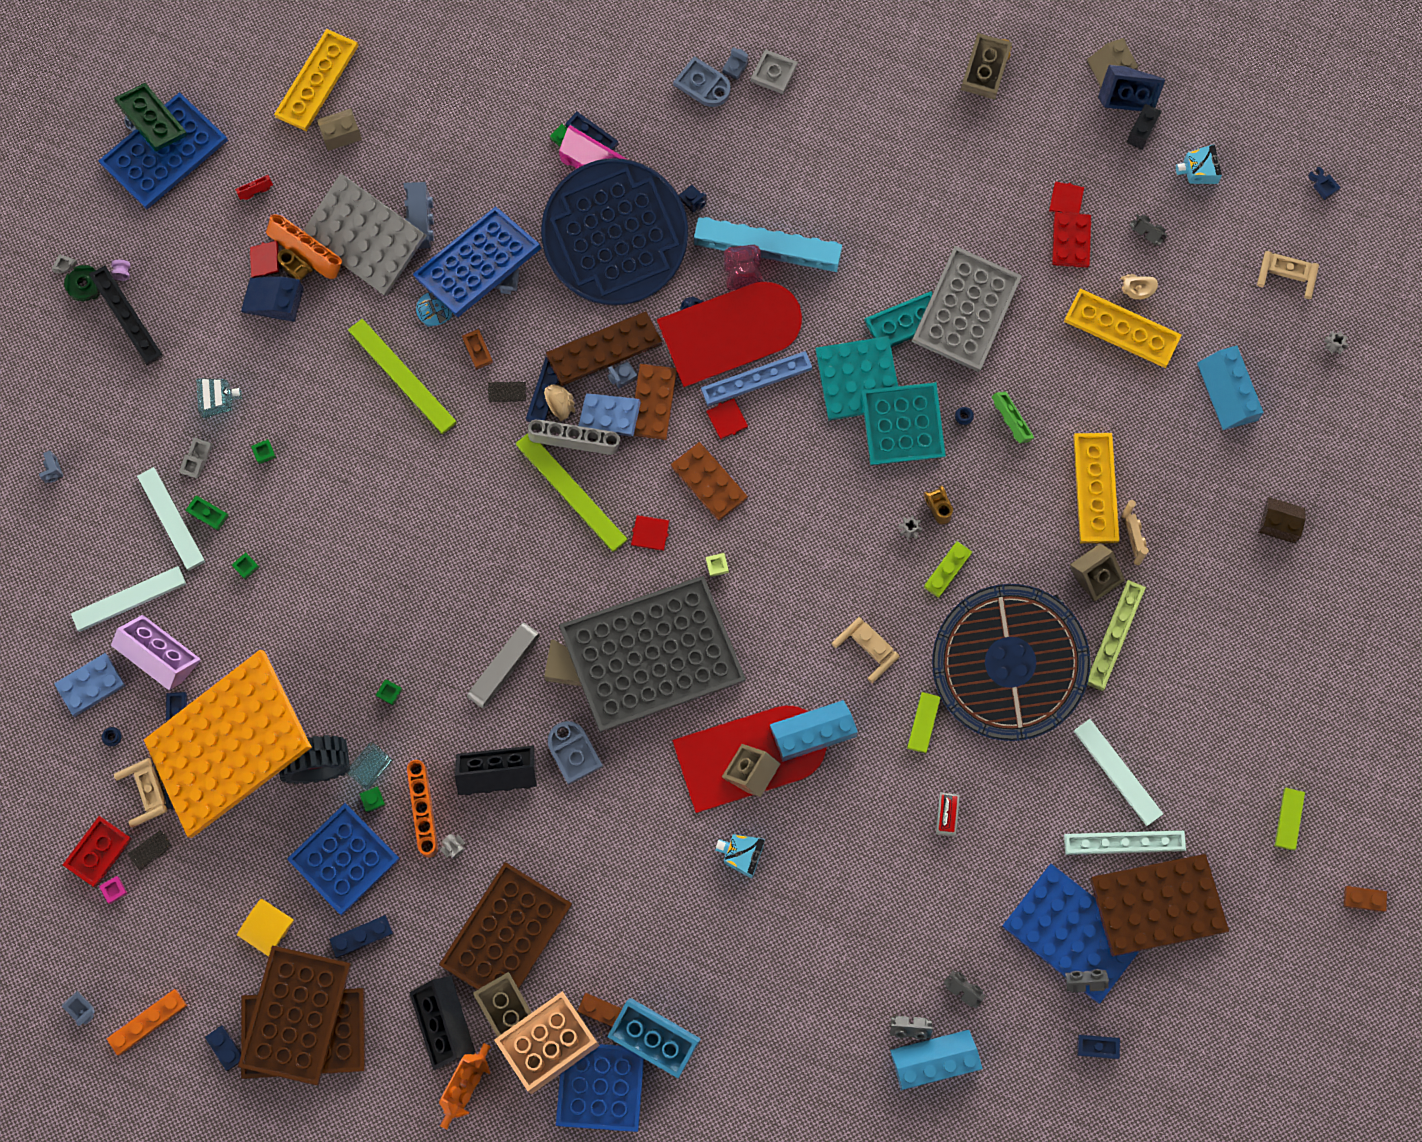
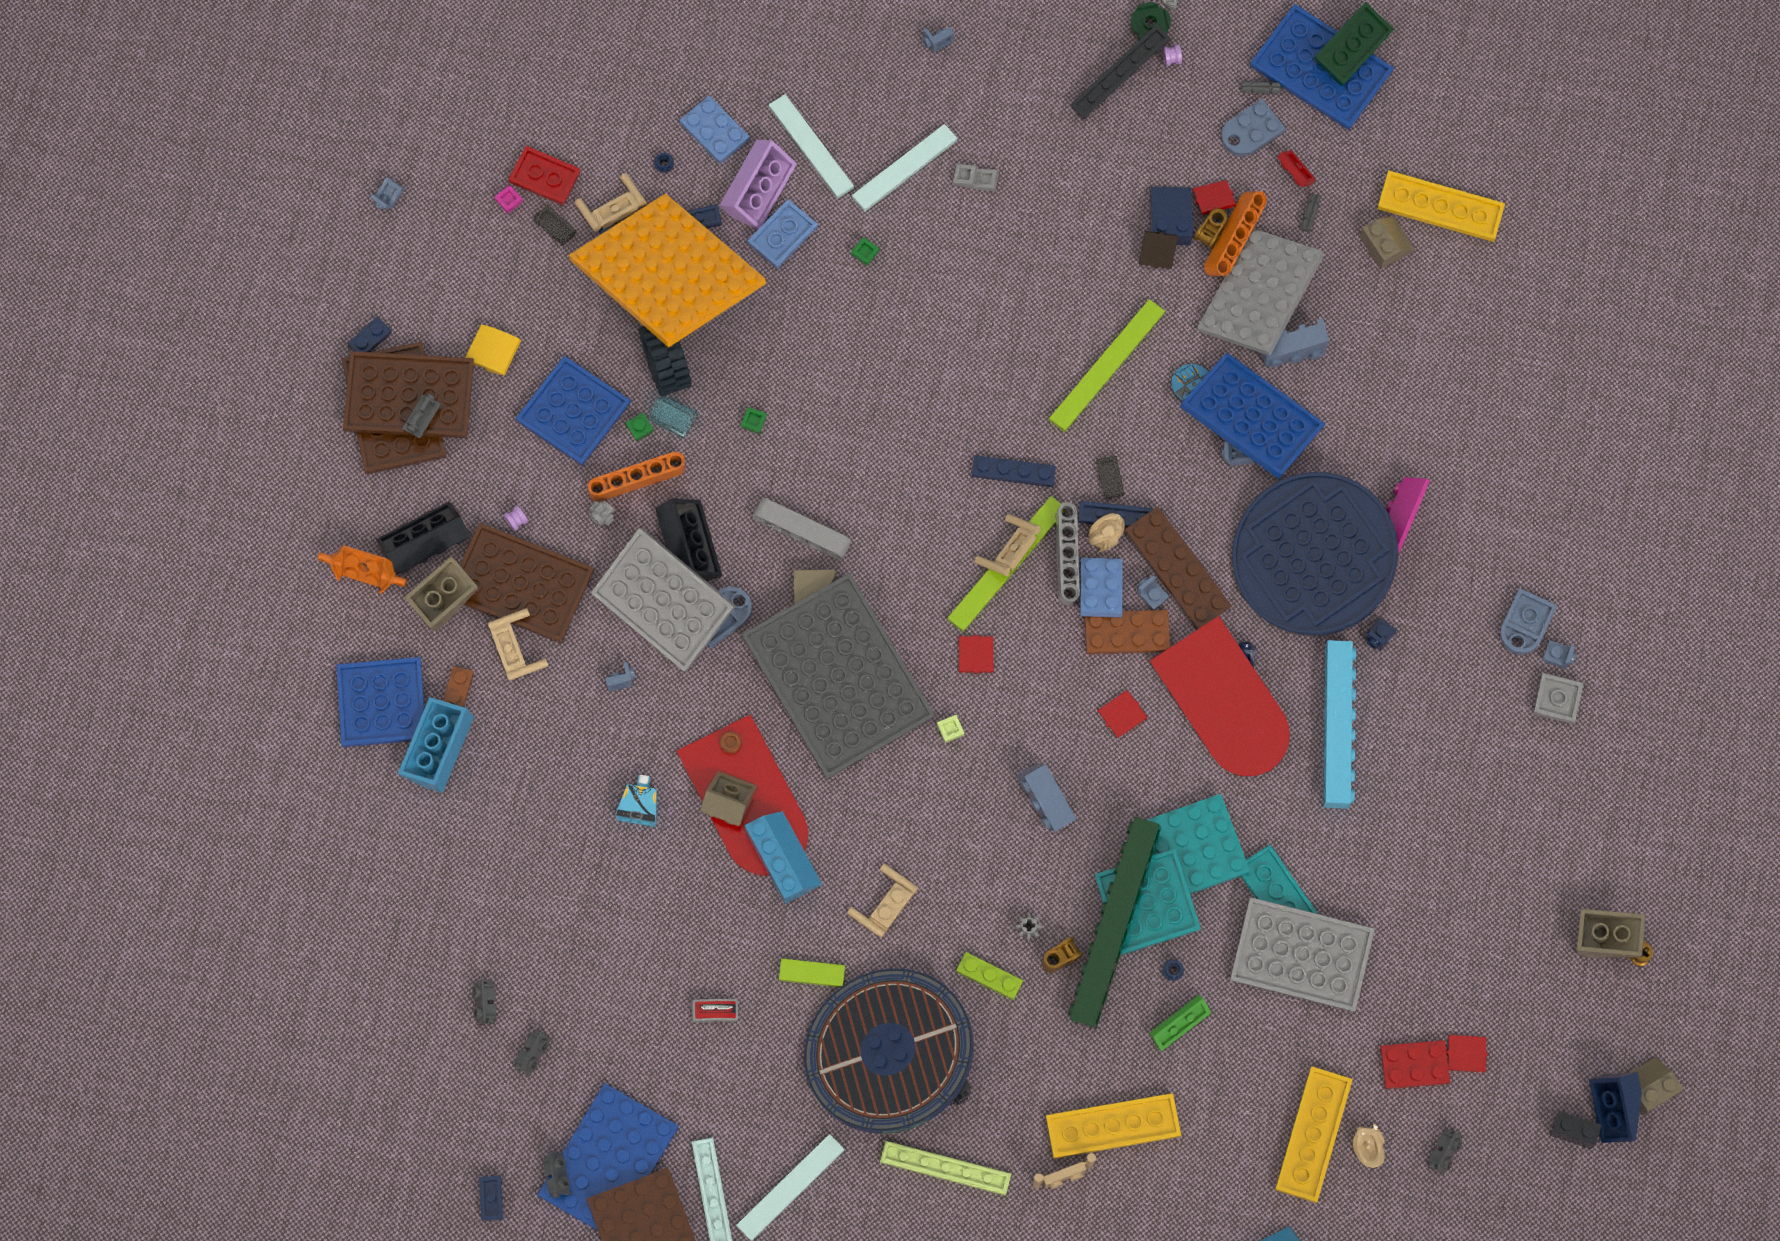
camera: 75 degrees right, 0 degrees up
(146, 1022) = (384, 260): orange plate -> none
(169, 204) = (1260, 87): none -> dark grey axle
(206, 217) = (1252, 128): none -> sand blue plate
(207, 513) = (916, 201): green plate -> none
(210, 637) = (782, 234): none -> medium blue plate
(215, 396) = (1046, 181): clear light blue torso -> none
(263, 451) = (994, 242): green plate -> none
(297, 184) = (1310, 212): none -> dark grey axle
(304, 312) = (1158, 249): none -> dark brown piece
(321, 1003) = (421, 415): none -> dark grey hinge
(361, 936) = (498, 444): dark blue plate -> none
(441, 929) = (515, 518): none -> lavender wheel
(477, 349) = (1152, 436): dark orange plate -> none
(485, 472) = (1013, 471): none -> dark blue plate
(546, 1043) = (413, 638): light nougat slope -> none
(550, 799) = (663, 599): none -> light grey plate
(558, 135) = (1433, 477): green plate -> none
(561, 480) = (1014, 549): none -> tan plate
(568, 954) = (509, 648): none -> tan plate
(590, 129) = (1436, 511): dark blue plate -> none
(619, 855) = (619, 681): none -> sand blue bracket
(697, 761) = (730, 742): none -> dark orange tile
(709, 481) = (1045, 706): dark orange plate -> none
(742, 265) = (1302, 700): clear pink piece -> none
(756, 378) = (1174, 737): medium blue plate -> none
(793, 492) = (1046, 797): none -> sand blue wedge
(920, 451) = (1115, 922): none -> dark green brick
(936, 1059) = (454, 1031): dark azure slope -> none
(1097, 572) = (1013, 1138): dark tan slope -> none
(1201, 166) = (1538, 1202): medium azure torso -> none

